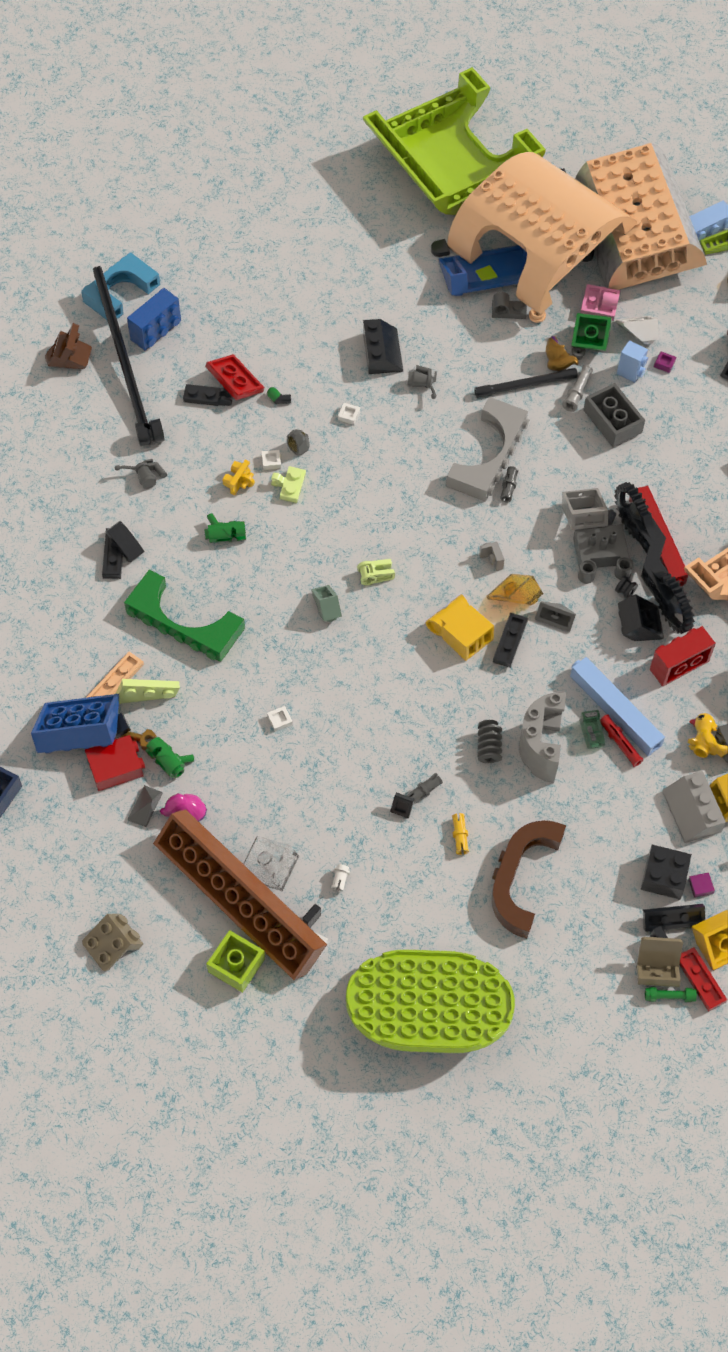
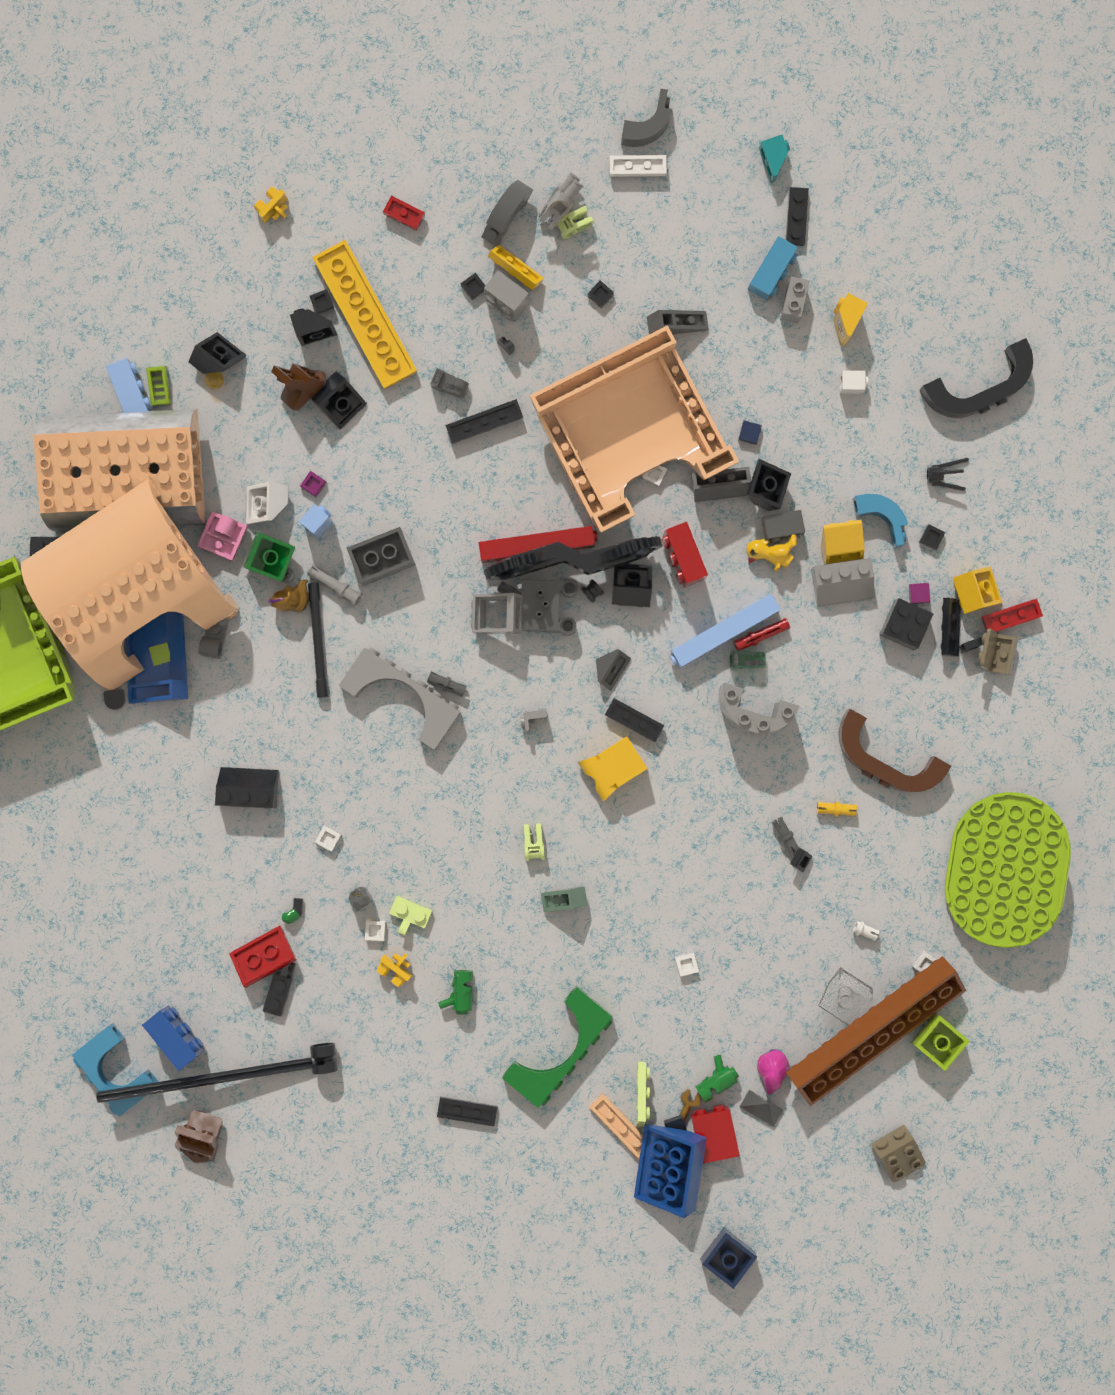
camera: 80 degrees left, 25 degrees up
(125, 541) = (460, 1099): black slope -> none
(143, 469) = (376, 1068): dark grey piece -> none
(312, 915) = (902, 964): black tile -> none
(422, 377) = (297, 755): dark grey piece -> none
(489, 741) = (748, 763): dark grey piece -> none
(517, 589) = (581, 705): clear yellow slope -> none
(653, 994) = (1024, 631): green bar -> none

